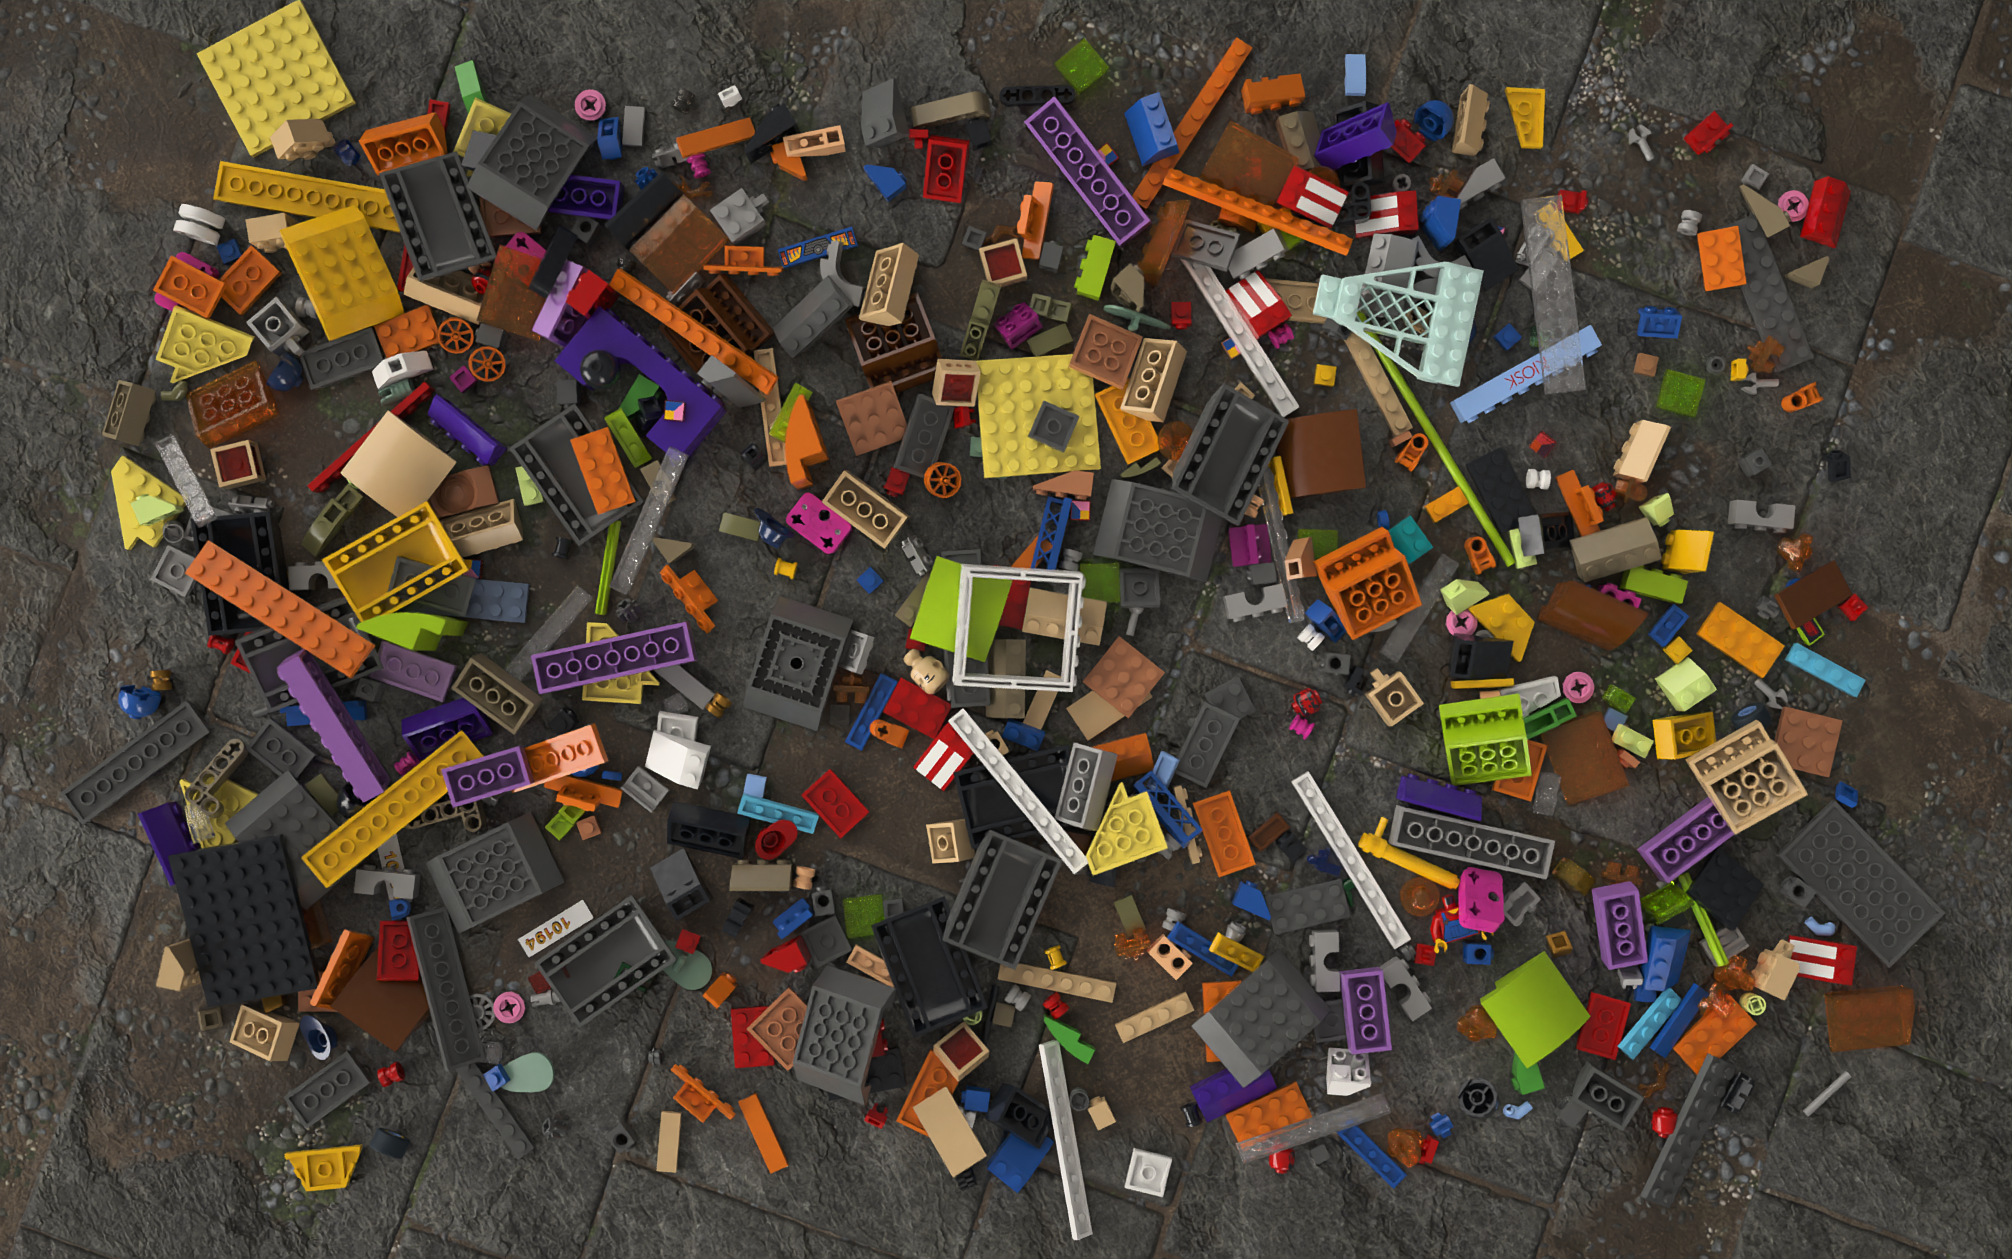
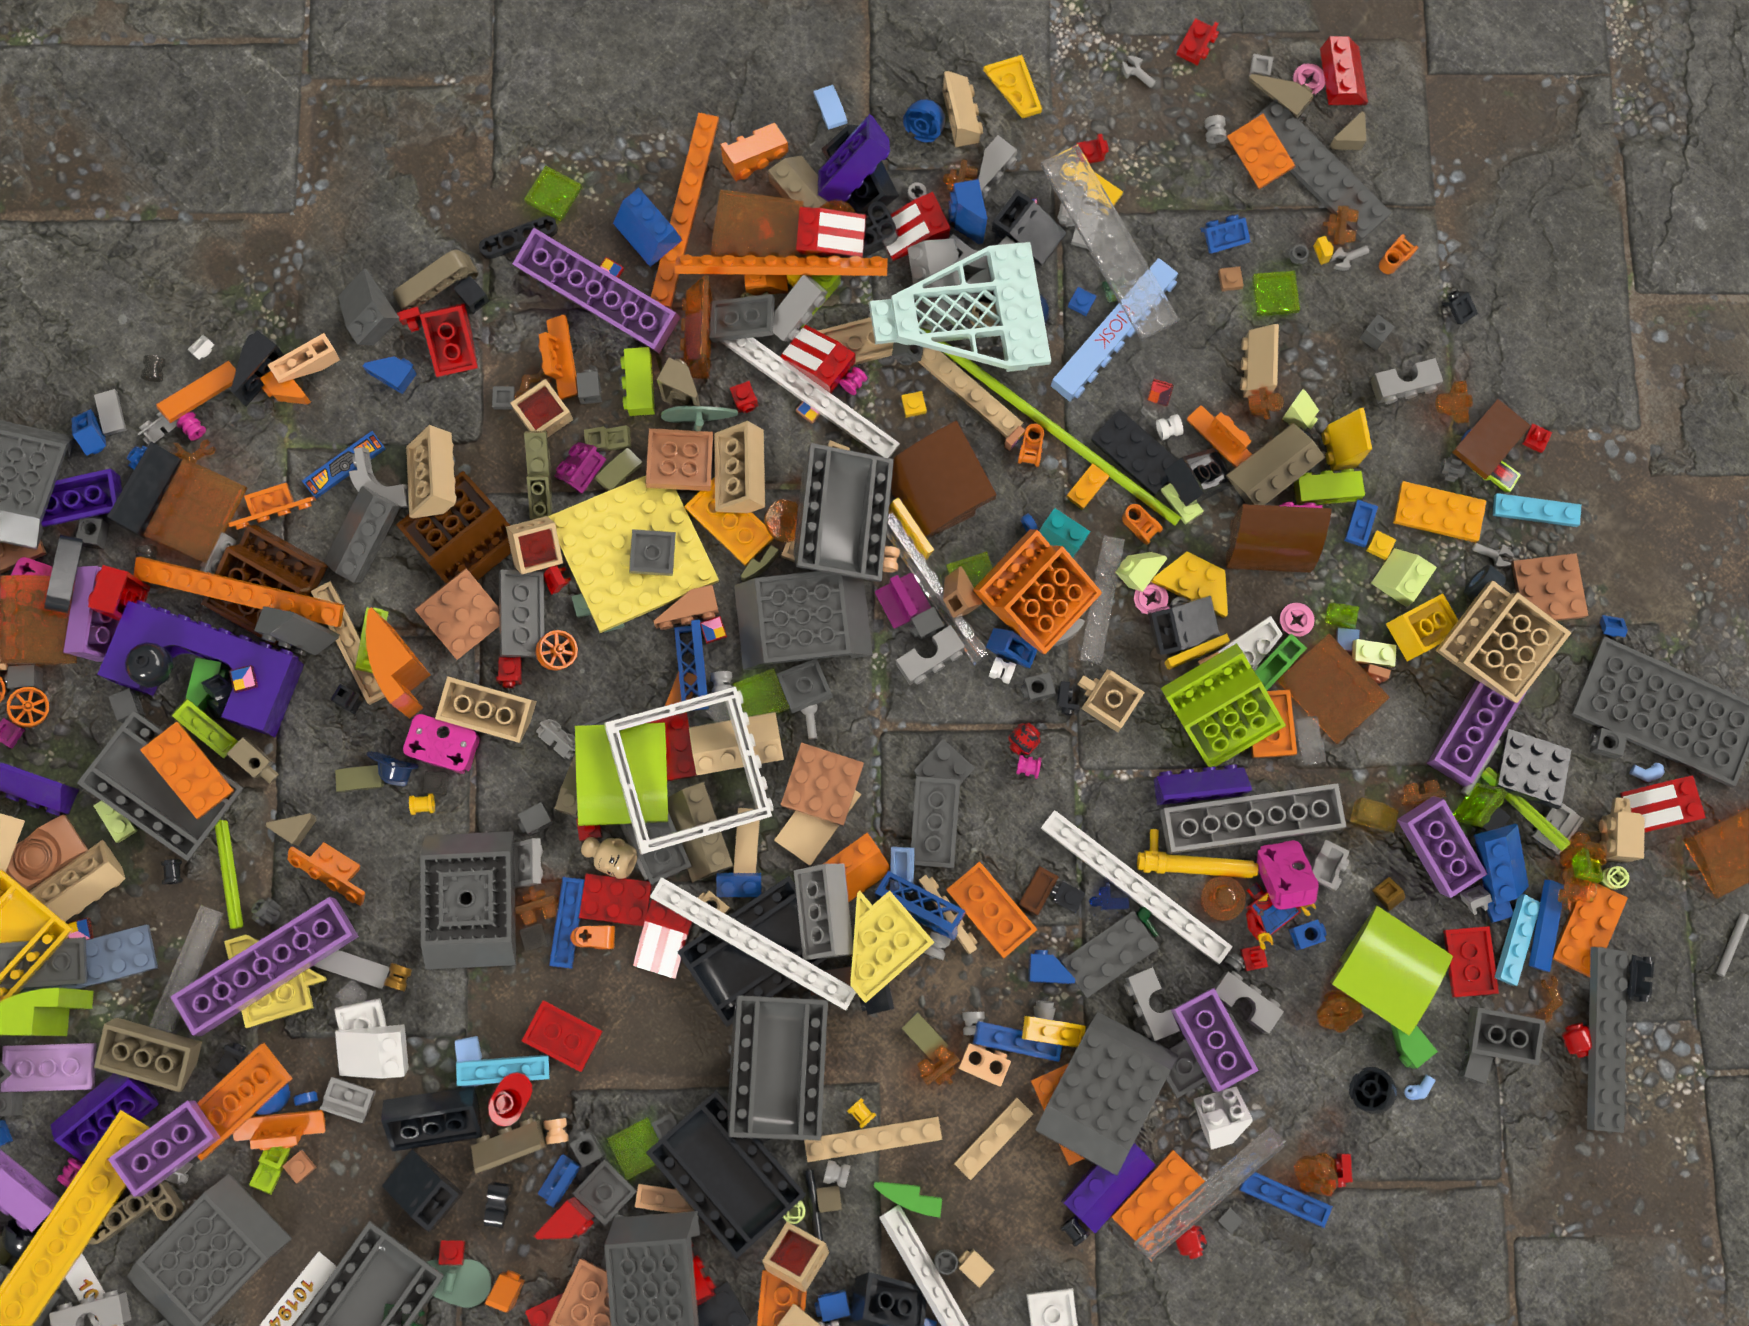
camera: 25 degrees left, 10 degrees down
(591, 96) = (57, 398): bright pink gear -> none
(648, 520) = (254, 806): clear plate -> none
(740, 215) = (251, 460): light grey hinge -> none
(870, 580) = (517, 784): blue plate -> none
(874, 616) = (534, 819): none -> dark grey brick
(949, 841) = (701, 1030): tan slope -> none
(1055, 1005) = (877, 1163): red wheel -> none
(1407, 142) = (905, 151): red bracket -> none
(1441, 1125) = (1346, 1136): blue gear -> none
(1605, 496) = (1244, 418): red head -> none
(1733, 988) = (1586, 867): none -> clear neon green bracket

